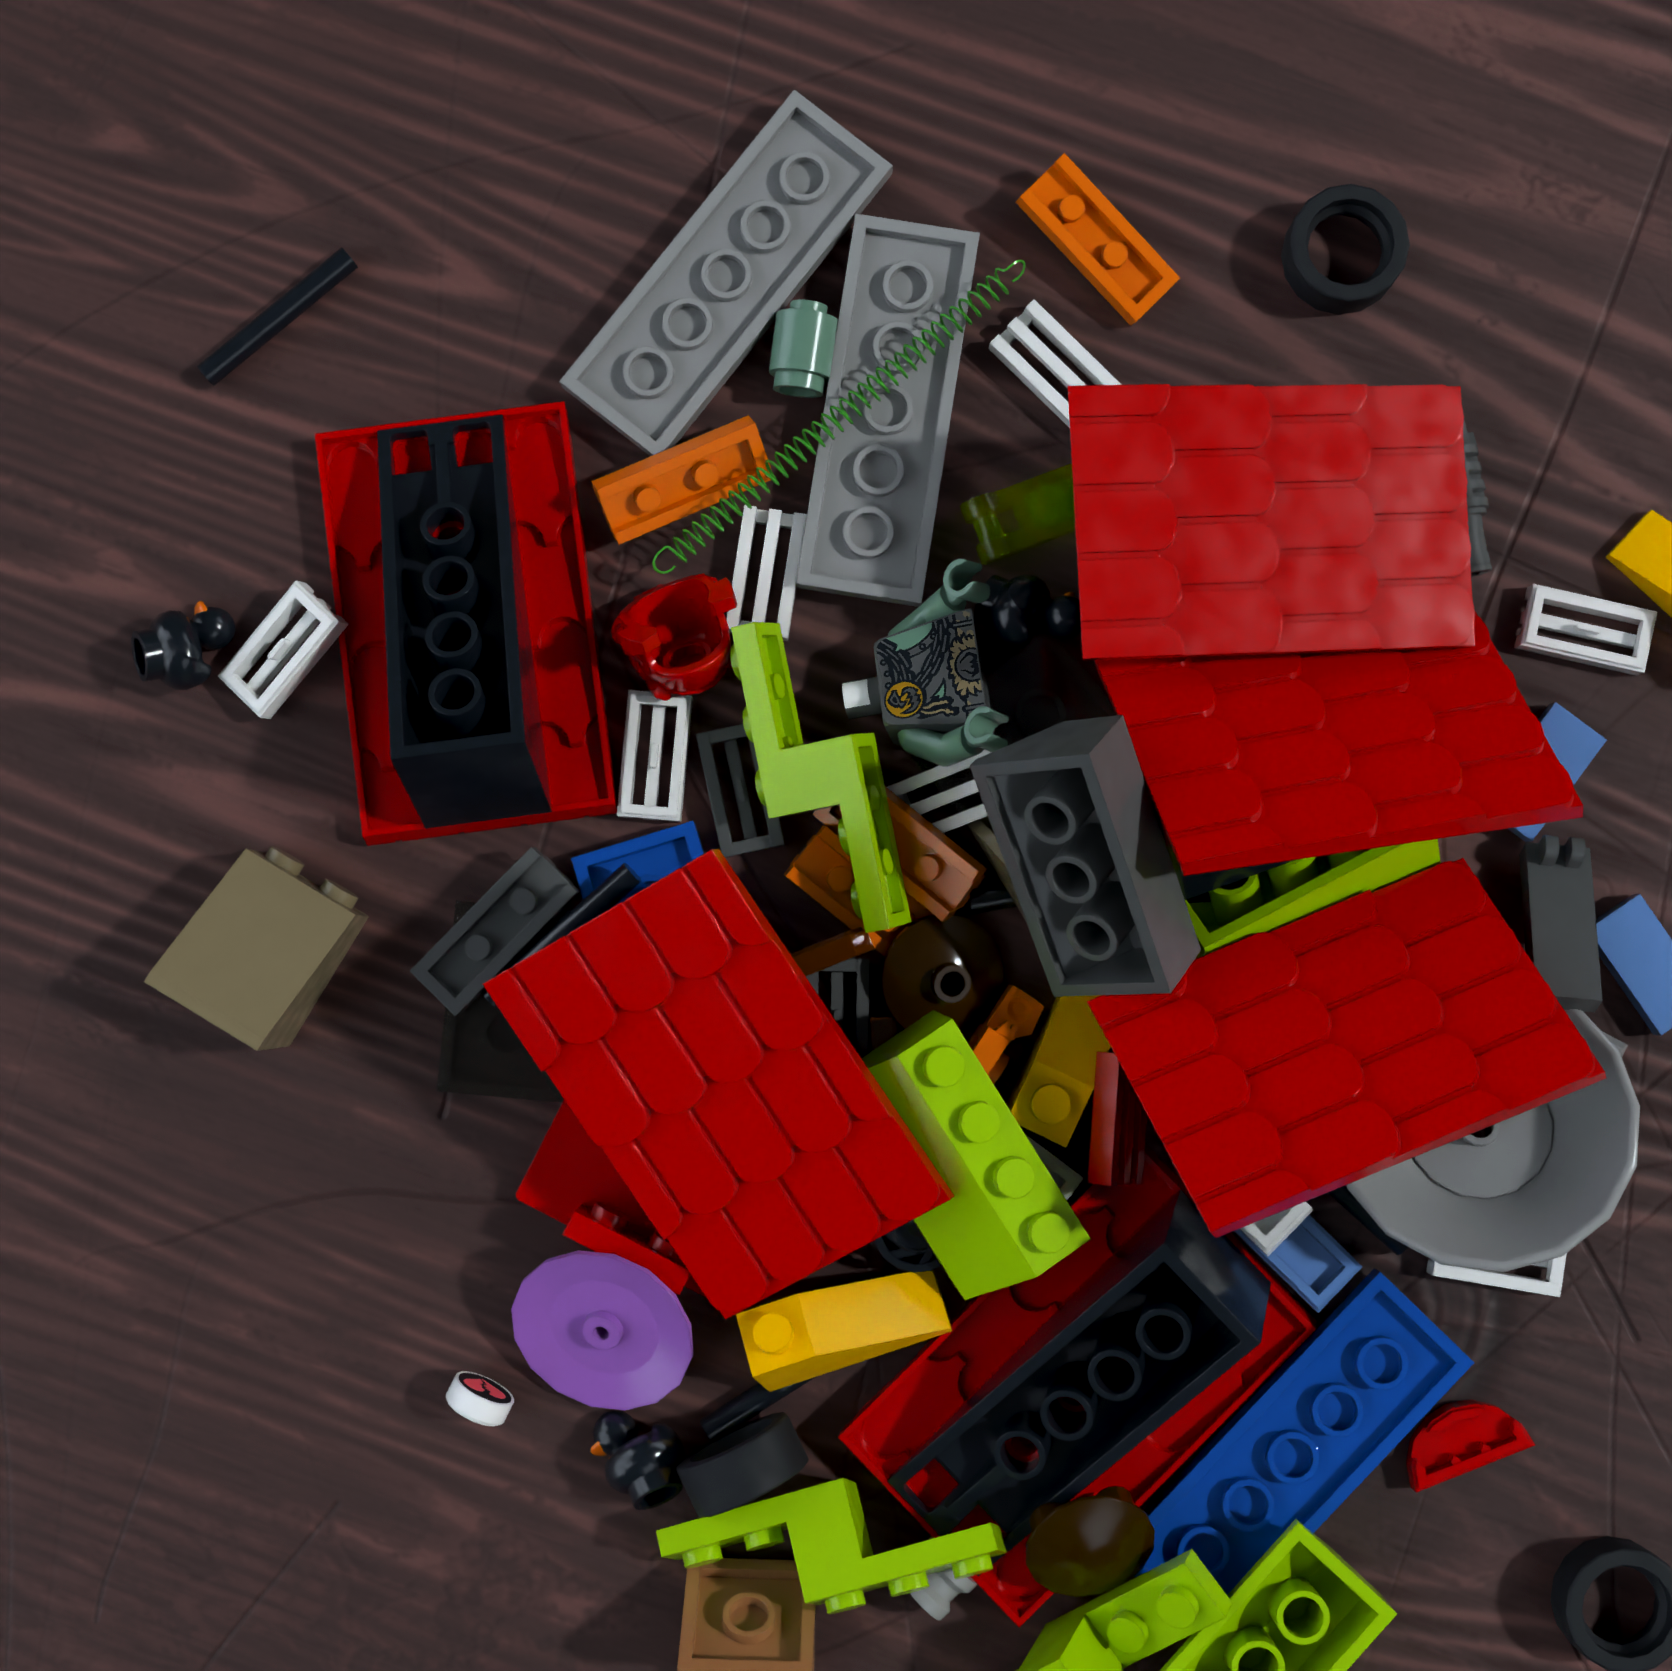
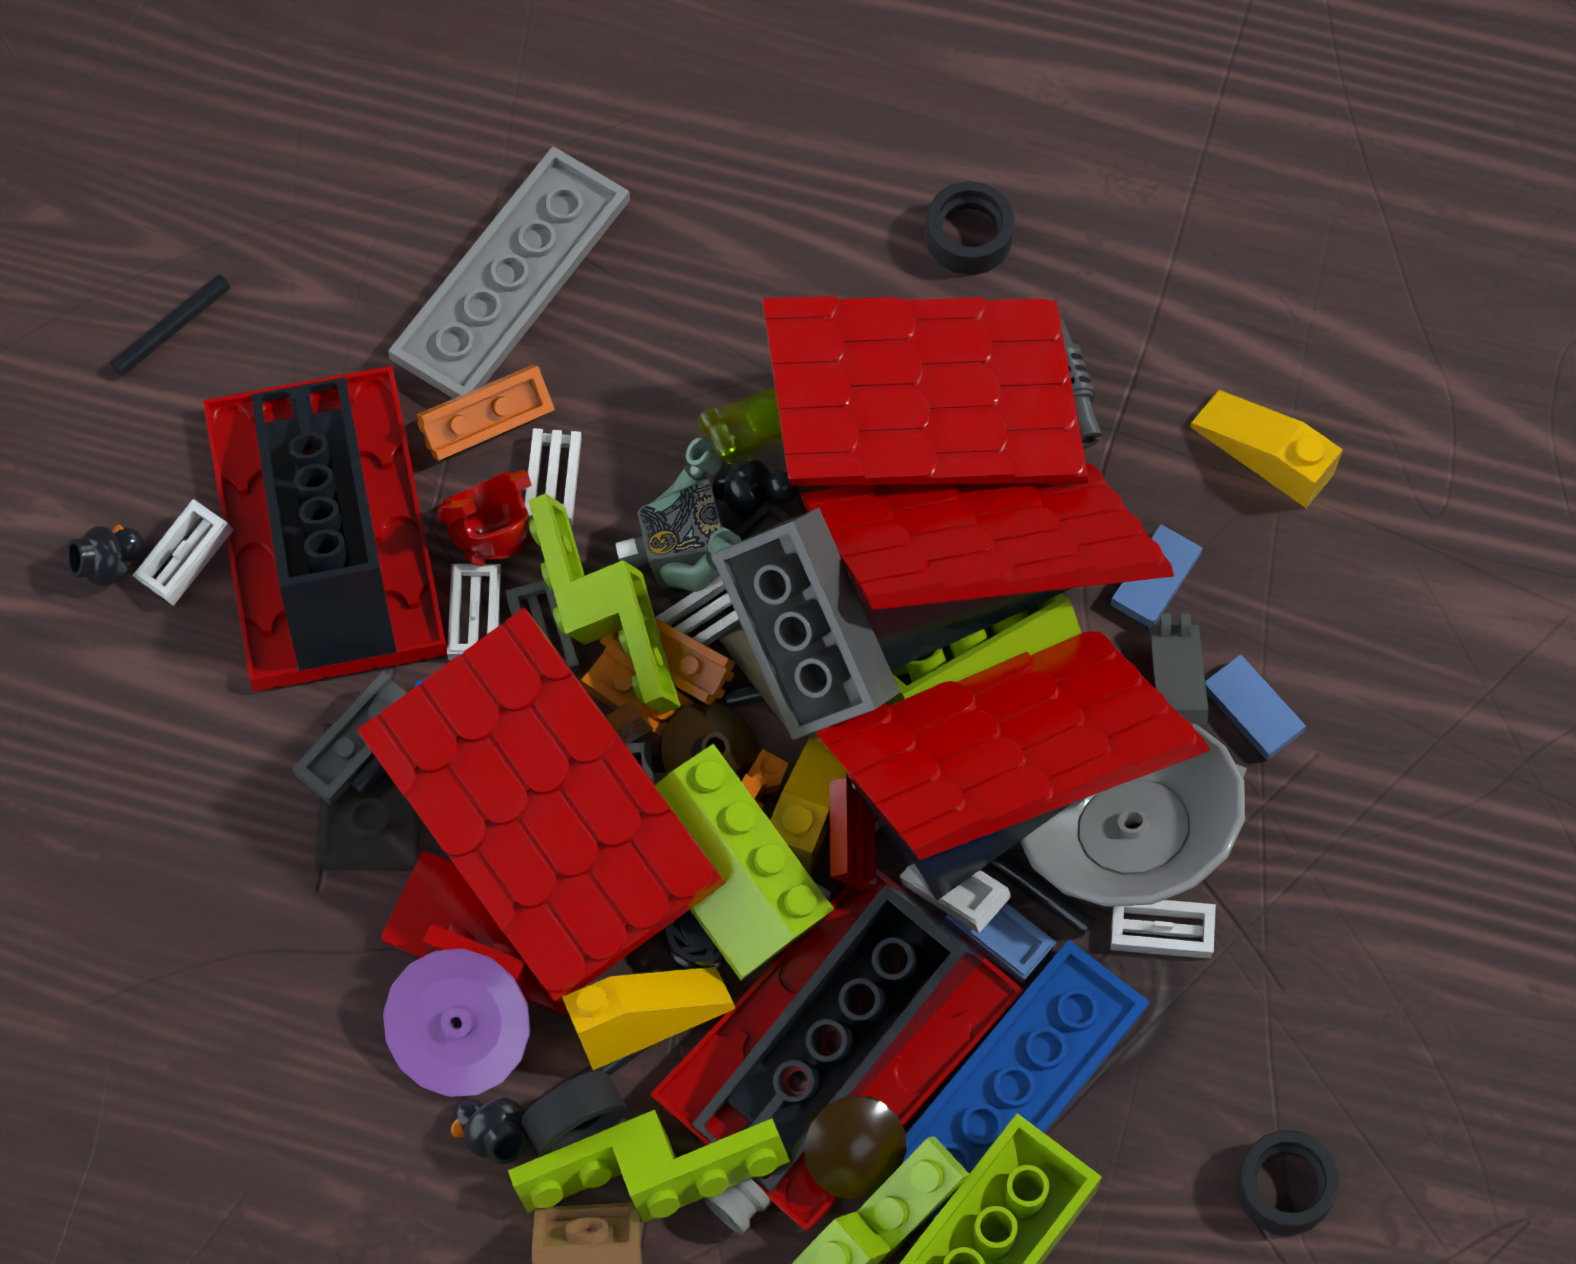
camera: 10 degrees left, 20 degrees down
(260, 949) = (174, 762): dark tan slope -> none
(479, 1398) = (359, 1091): white tile -> none
(802, 349) = (570, 319): sand green brick -> none
(833, 419) = (632, 335): bright green piece -> none
(883, 474) = (637, 359): light grey plate -> none
(1068, 345) = (733, 297): white tile -> none
(1097, 239) = (786, 233): orange hinge -> none
(1460, 1440) = (1150, 1070): red tile -> none
(1533, 619) = (1193, 490): white tile -> none

